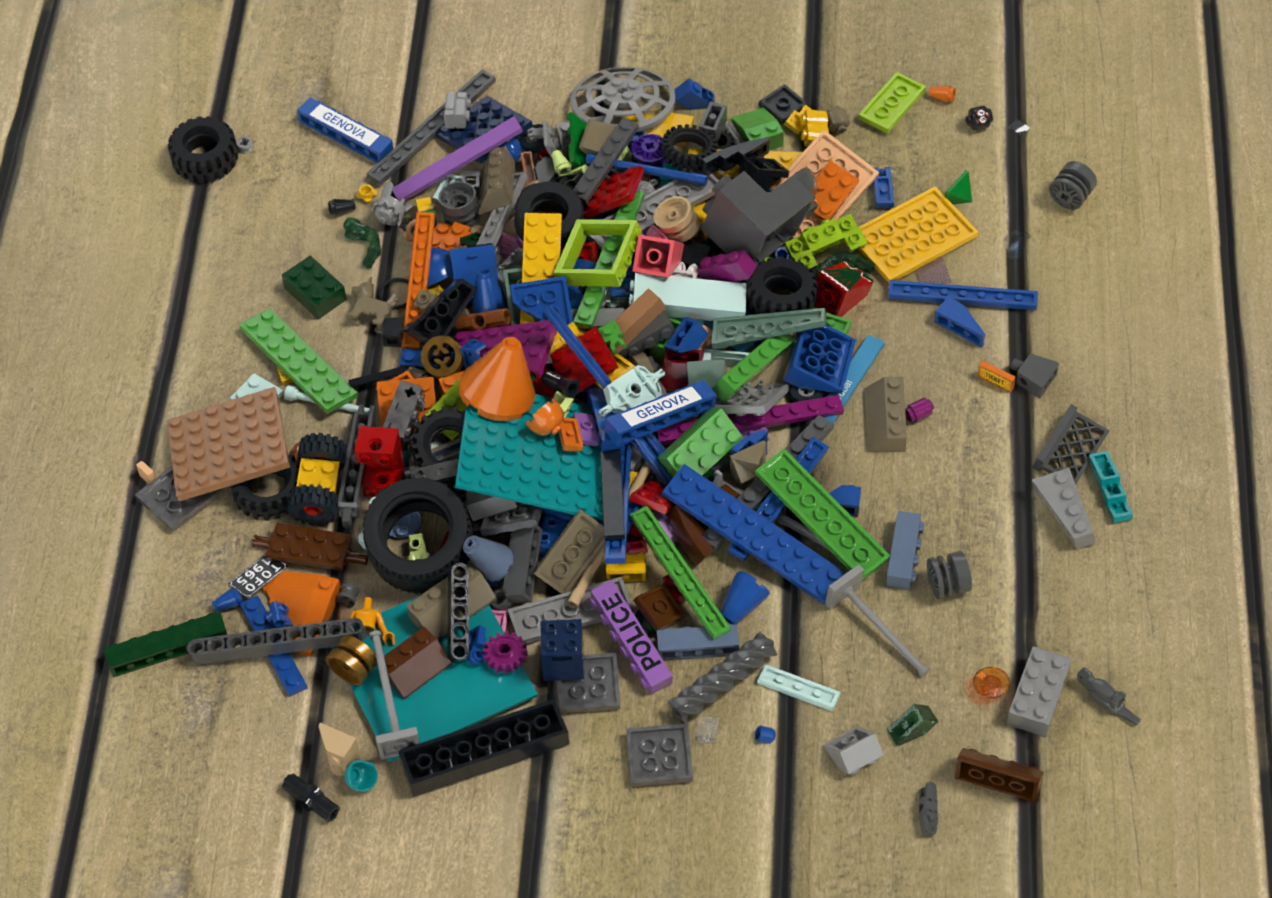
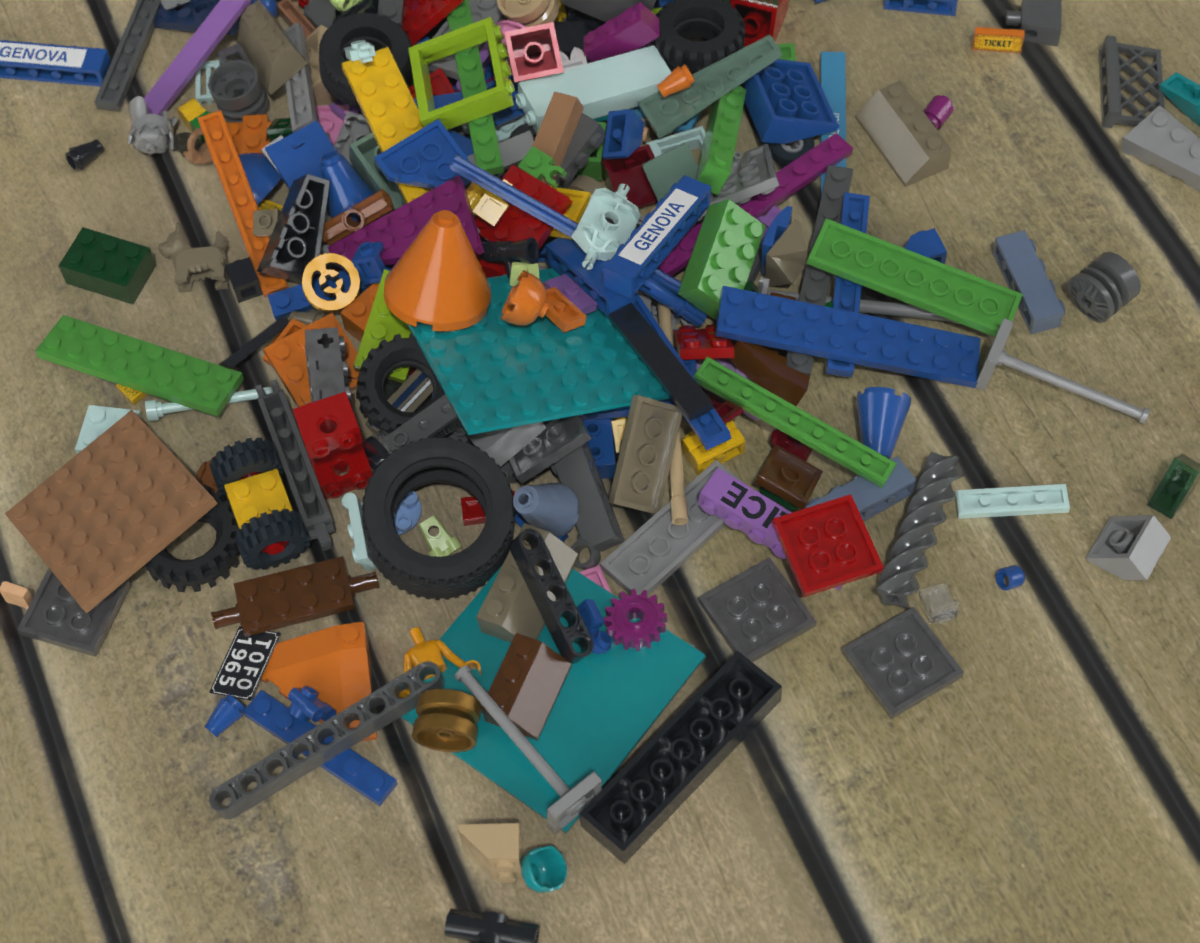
camera: 25 degrees left, 5 degrees up
(161, 644) = (170, 815): dark green brick -> none
(347, 594) = (381, 636): dark grey wheel -> none
(364, 232) = (129, 174): clear green piece -> none
(366, 193) = (107, 126): yellow plate -> none
(387, 282) = (206, 215): black tyre -> none
(541, 209) = (360, 51): none -> light aqua plate
(562, 650) = (713, 583): dark blue container -> none
(563, 351) = (491, 207): none -> plate
(651, 659) = (827, 545): none -> red plate
(744, 314) = (676, 81): none -> orange cone

